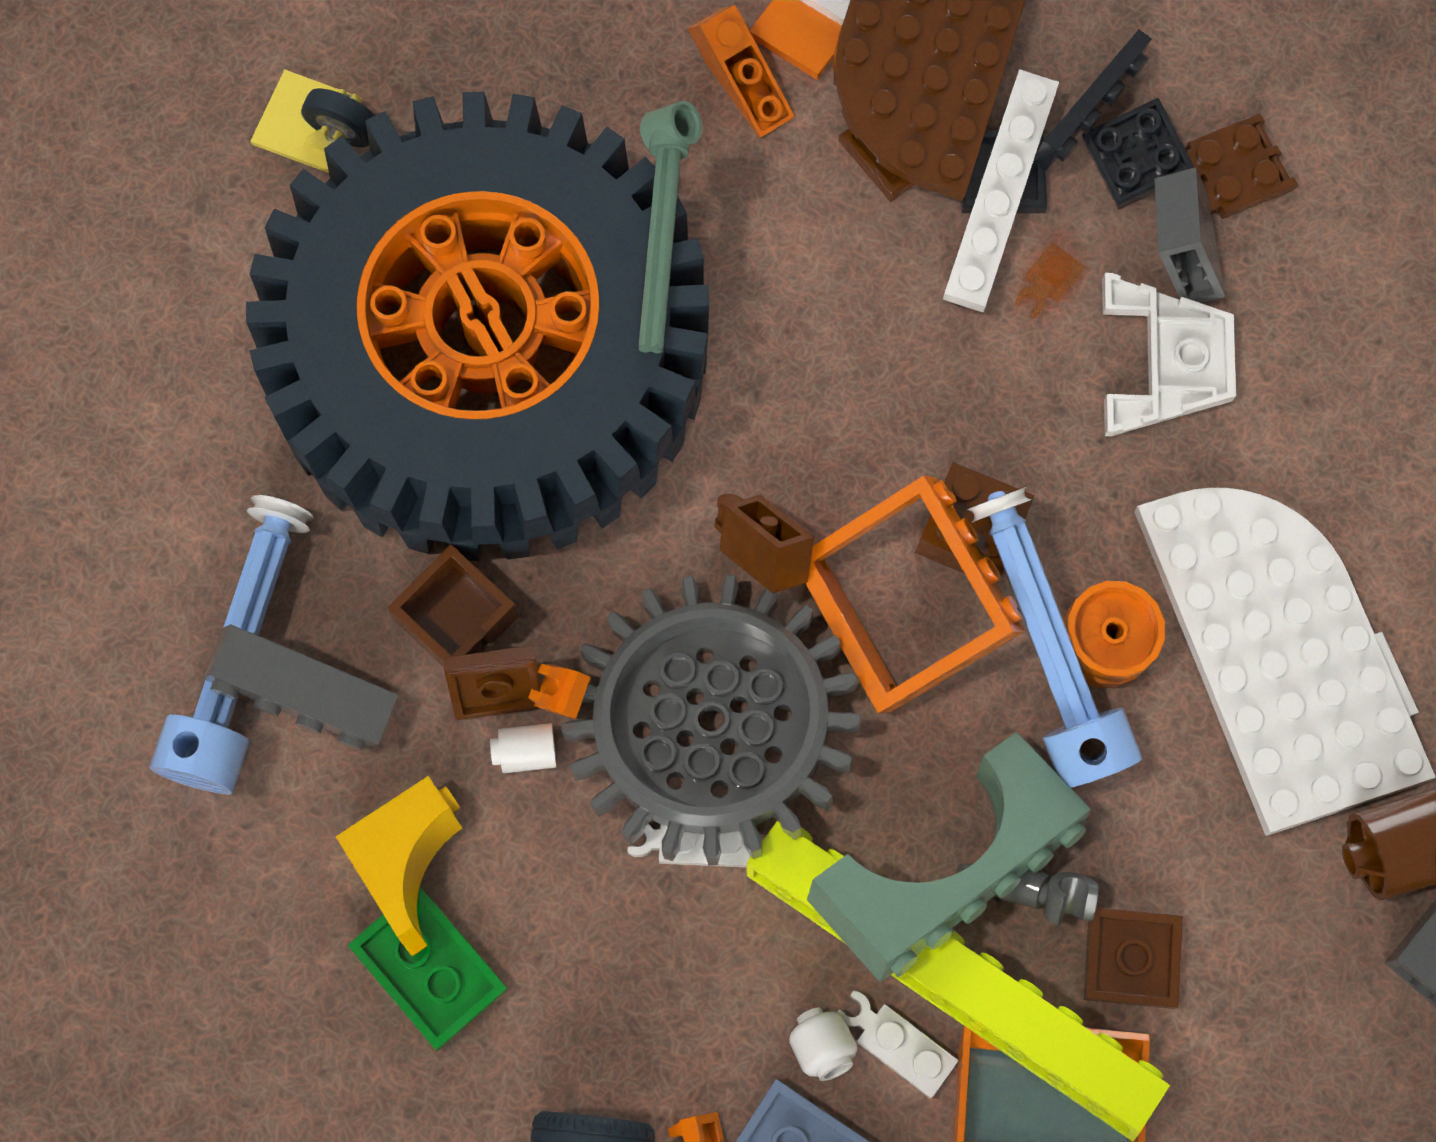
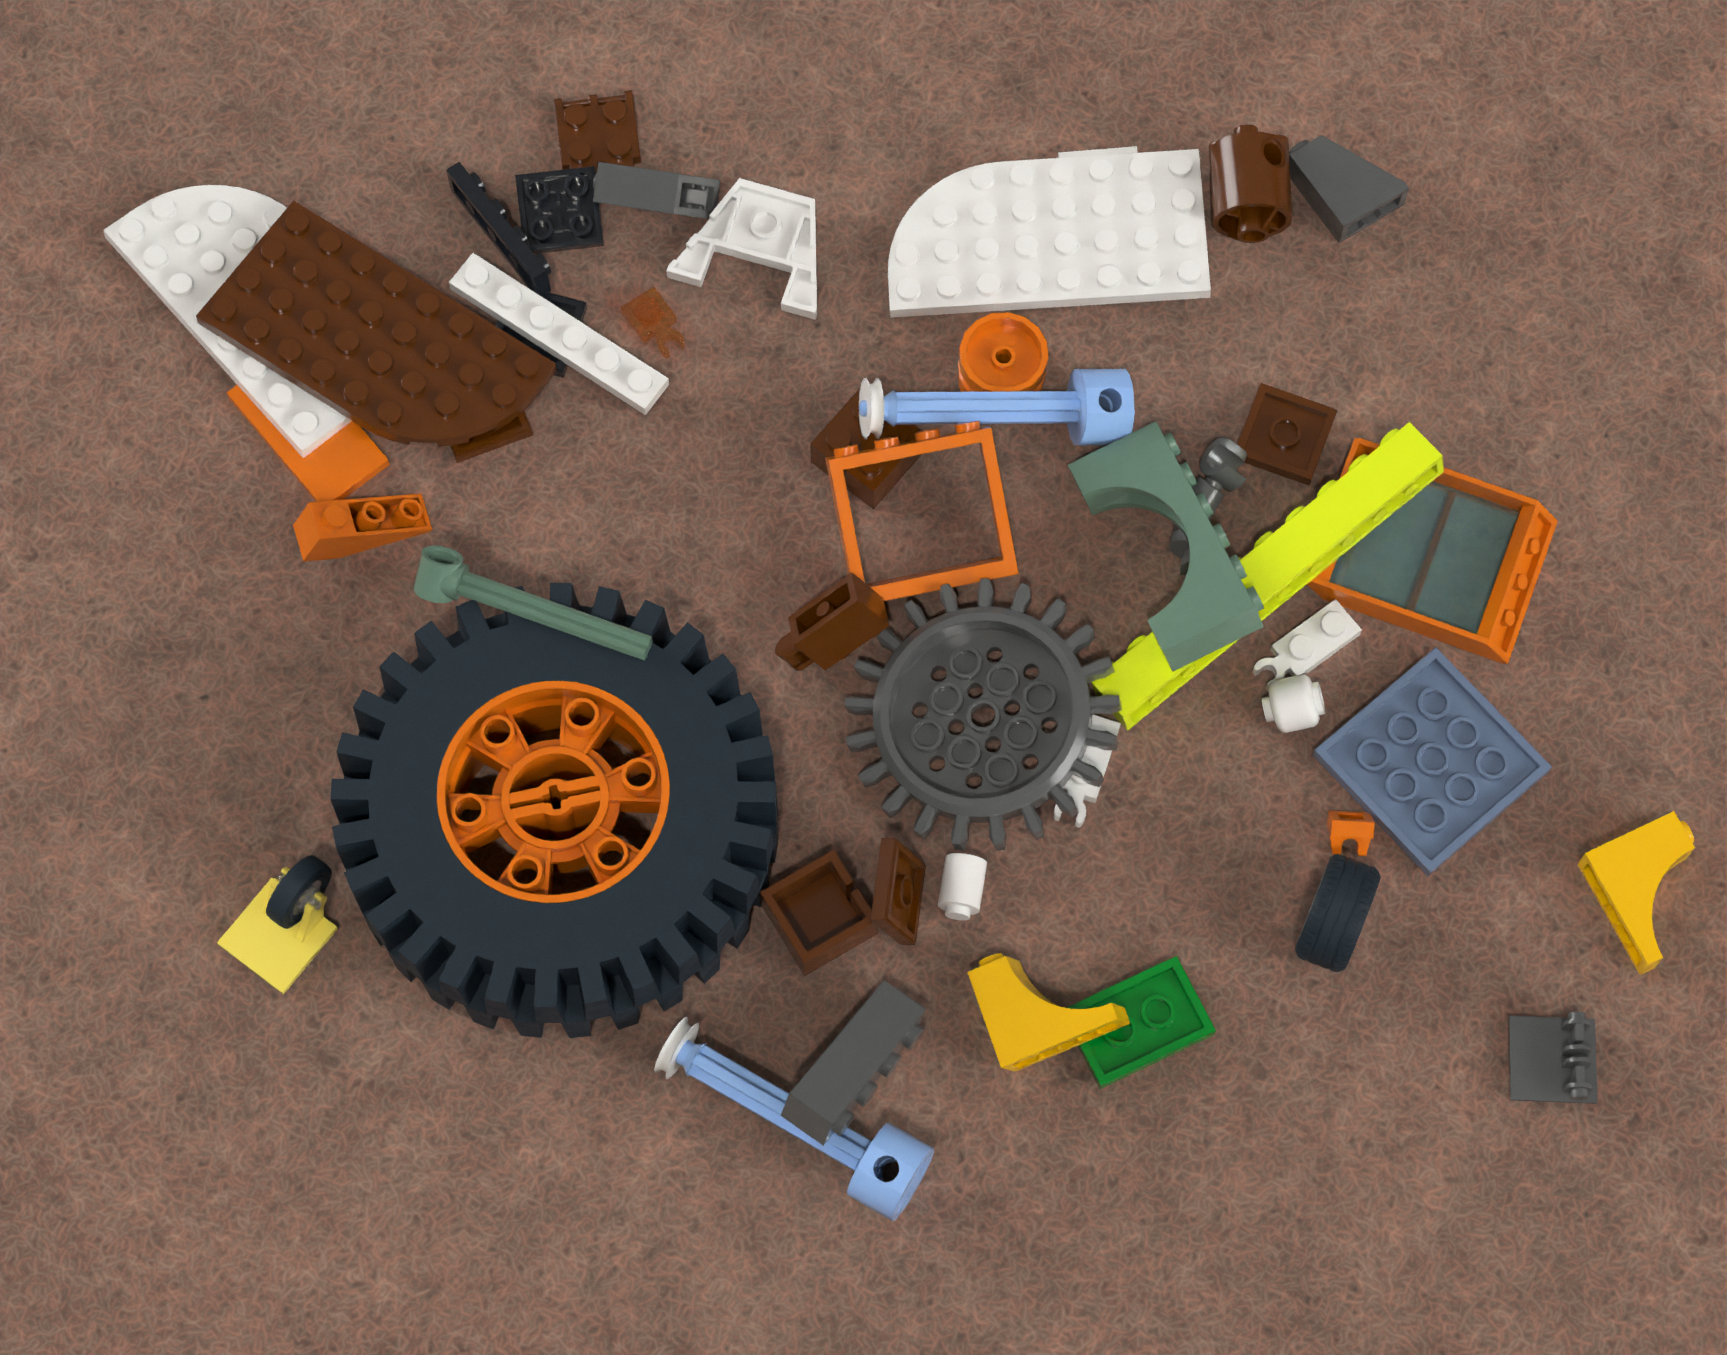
camera: 70 degrees left, 5 degrees down
(560, 690) = (924, 833): orange tile -> none

